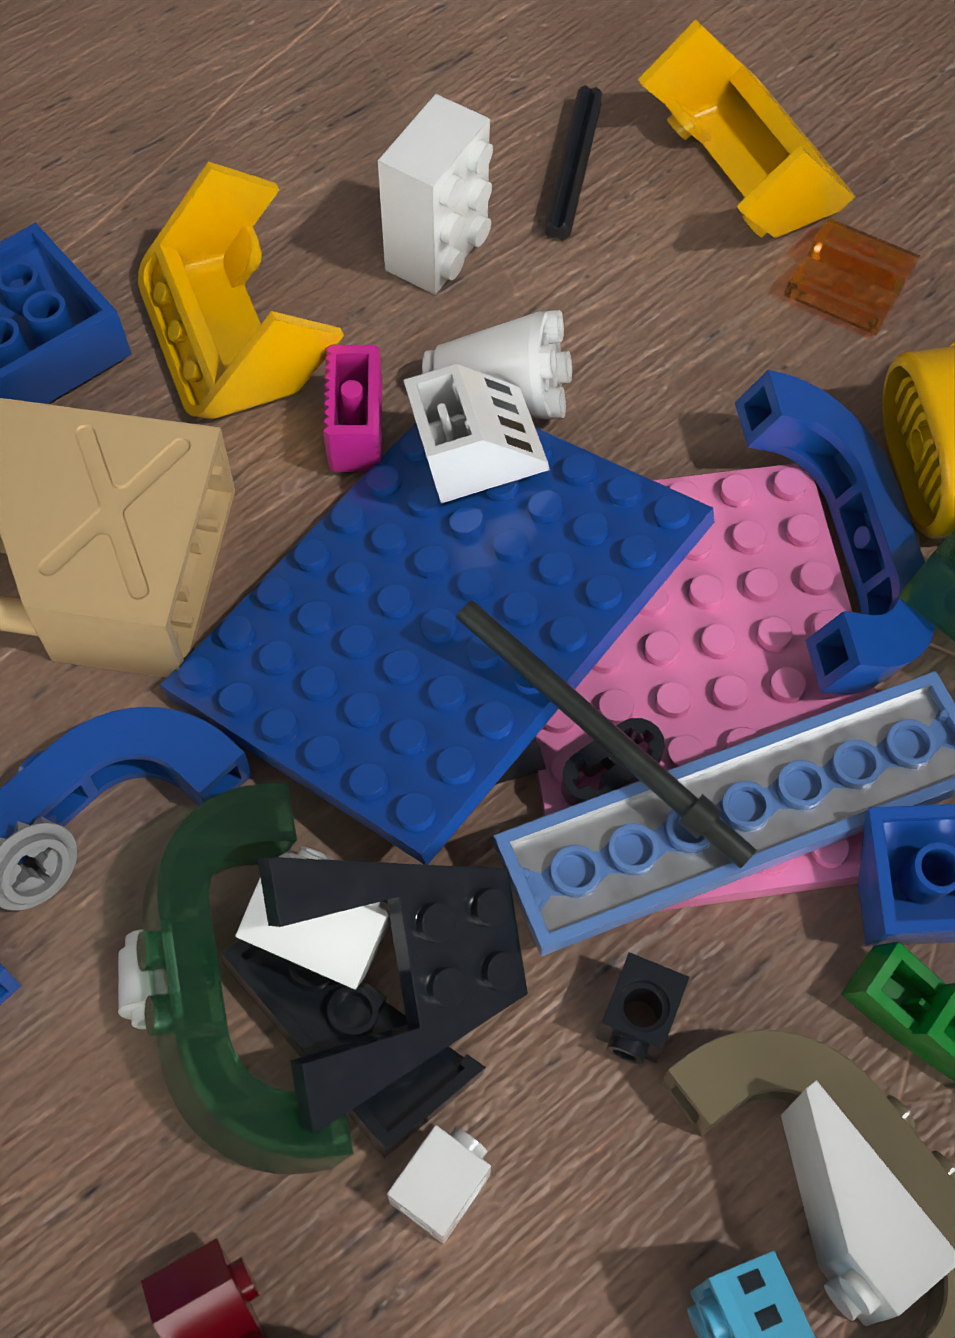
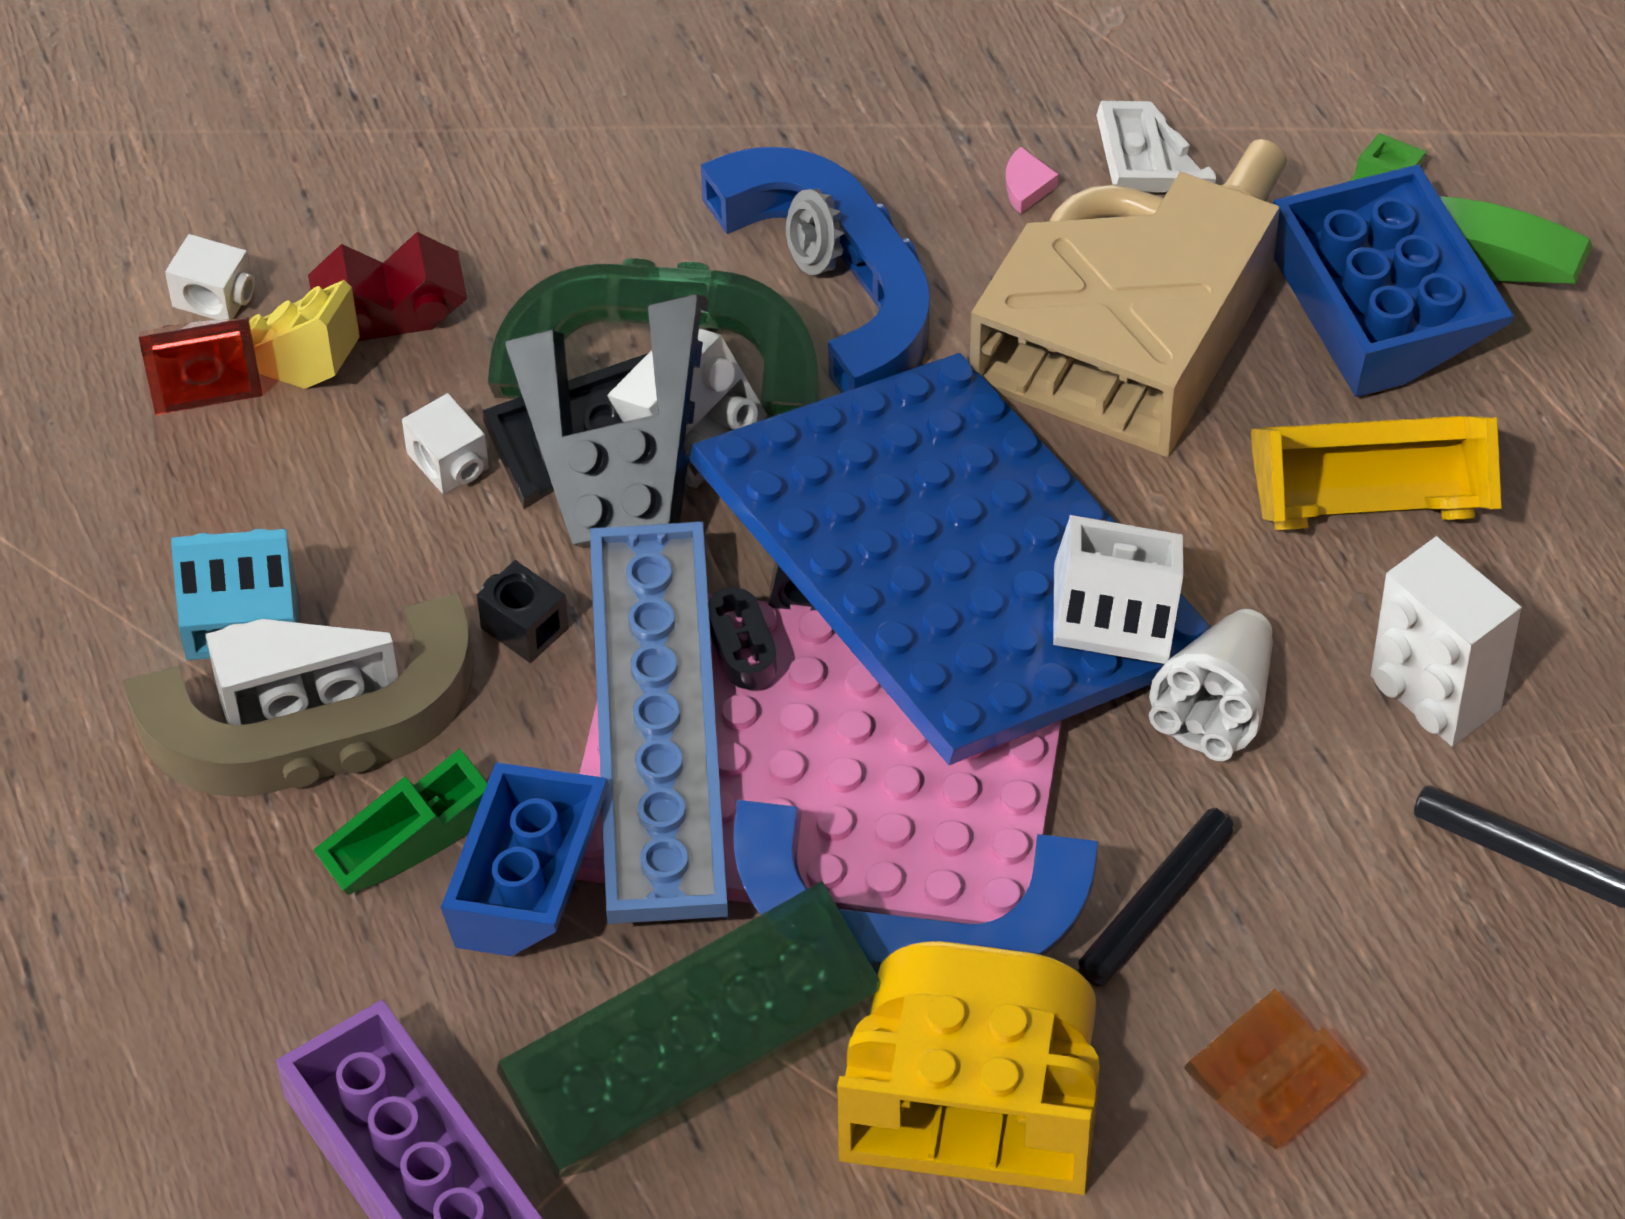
camera: 110 degrees right, 10 degrees down
(353, 407) = (1218, 538): dark pink brick -> none
(690, 371) = (1155, 897): none -> black axle
(697, 814) = (654, 652): pearl dark grey bar -> none
(746, 133) = (1491, 1046): yellow windscreen -> none

